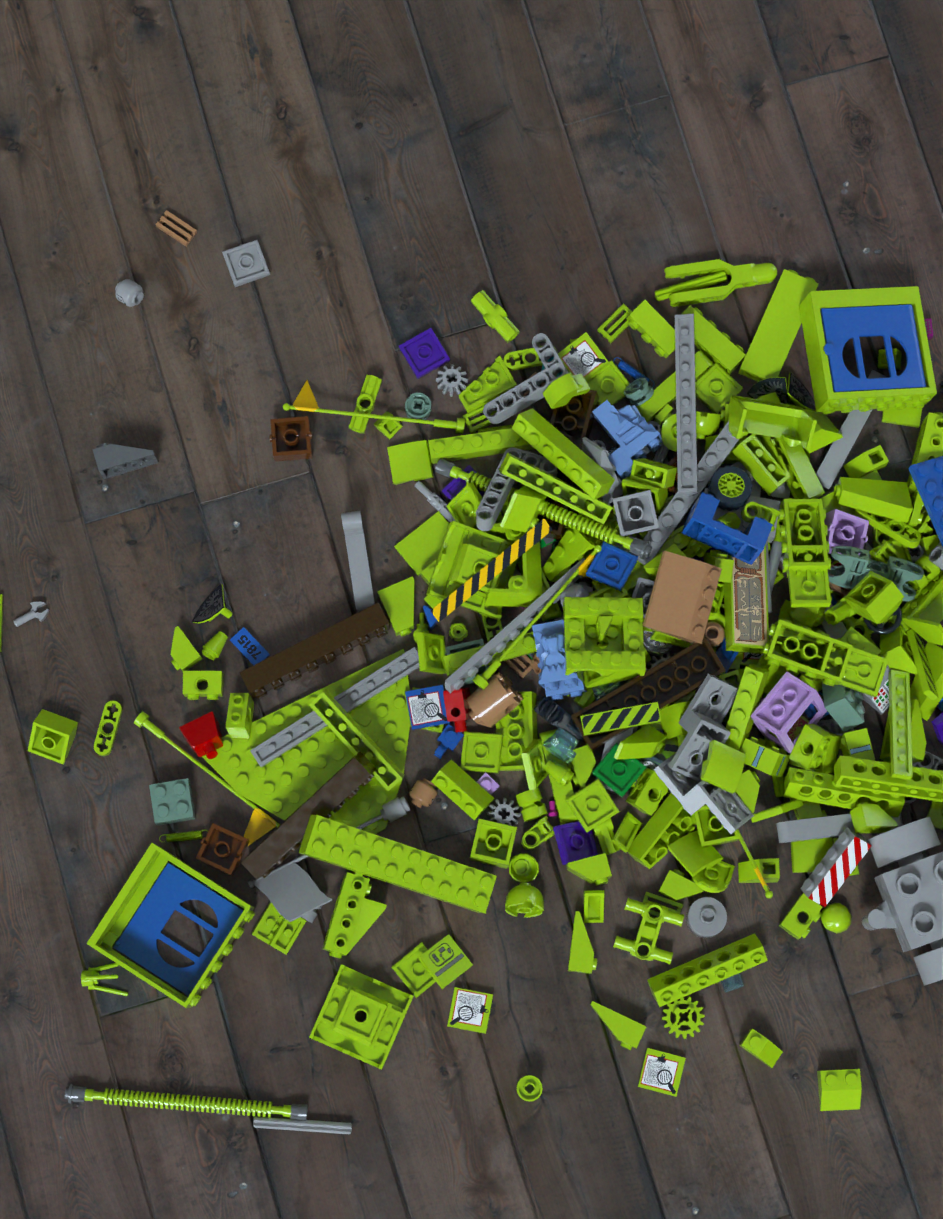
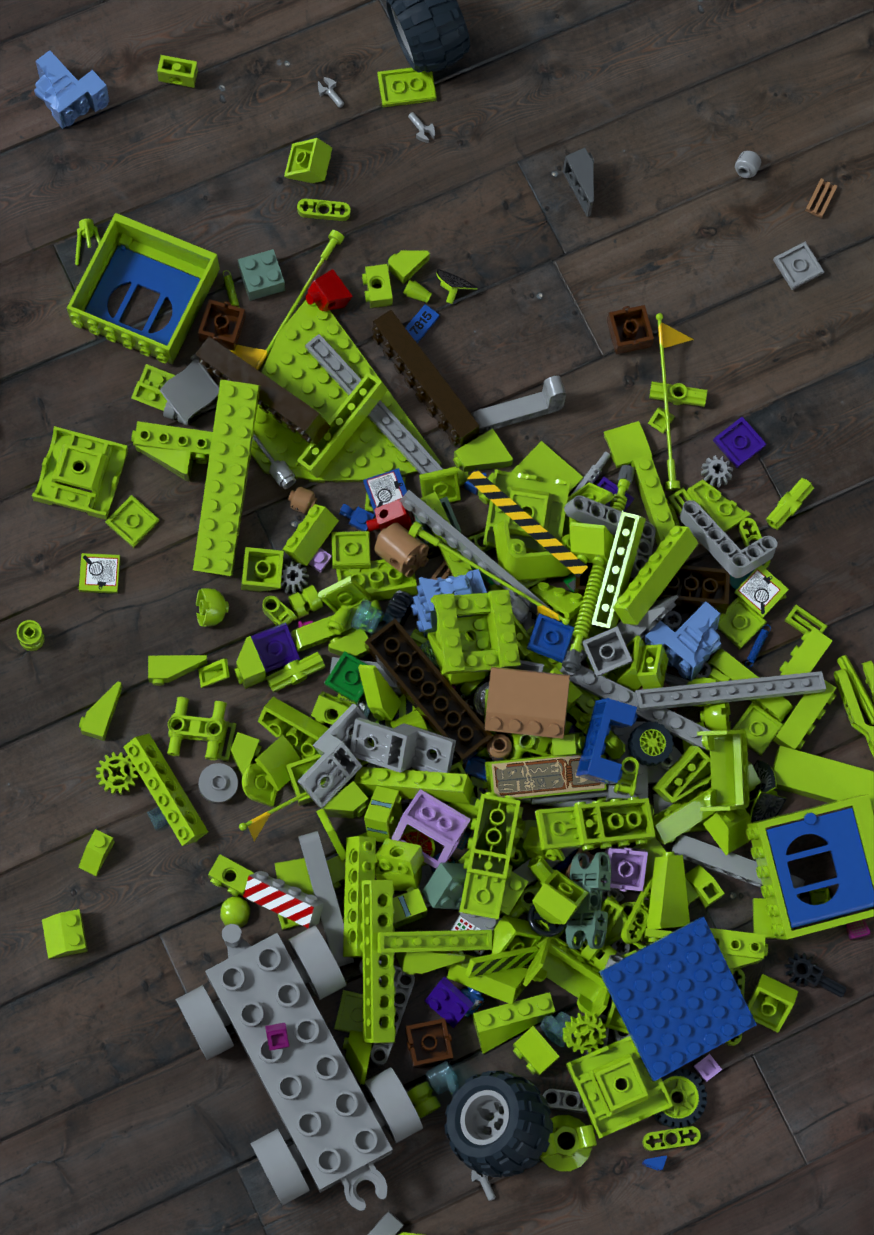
camera: 75 degrees right, 5 degrees down
(240, 715) = (352, 321): lime brick -> none
(418, 406) = (684, 444): sand green wheel -> none
(445, 961) = (143, 542): lime tile -> none
(454, 628) = (471, 512): lime plate -> none
(523, 868) = (243, 602): lime hair -> none
(565, 388) = (725, 571): lime brick -> none
(592, 805) = (311, 657): lime tile -> none
(602, 626) = (484, 630): lime slope -> none
(620, 718) = (398, 664): tile -> none
(626, 832) = (291, 695): lime tile -> none
(639, 391) = (737, 649): sand green wheel -> none
(661, 1072) = (61, 761): tile -> none
(723, 766) = (365, 768): lime slope -> none
(768, 868) = (272, 832): lime slope -> none
(871, 819) = (335, 925): lime slope -> none

